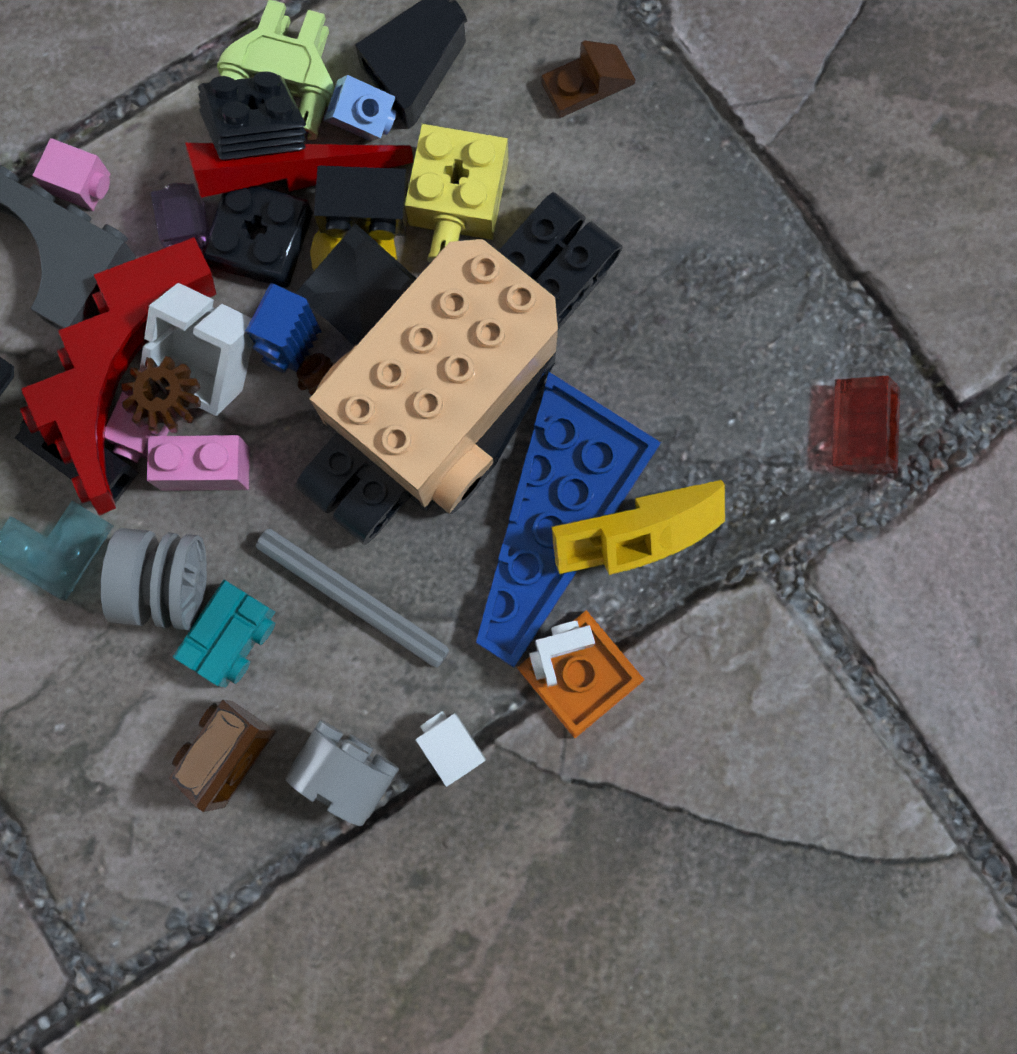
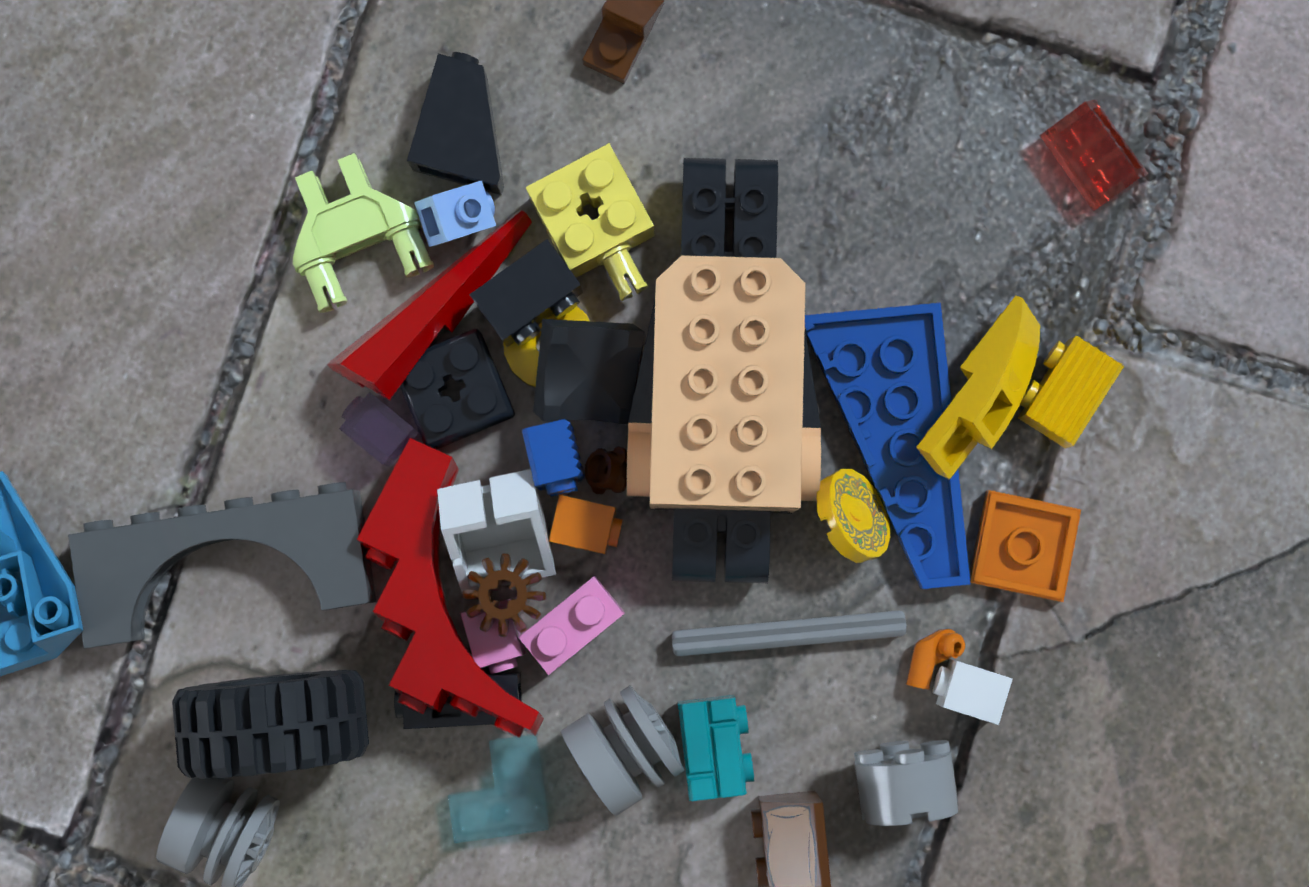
camera: 40 degrees left, 5 degrees up
(72, 174) = (251, 464): bright pink brick -> none
(251, 116) = (375, 295): black brick -> none
(268, 399) = (585, 525): none -> orange brick
(444, 696) = (930, 652): none -> orange arm
(466, 544) = (854, 515): none -> tile
(565, 640) = (997, 530): white bracket -> none
(706, 583) = (1069, 390): none -> yellow brick

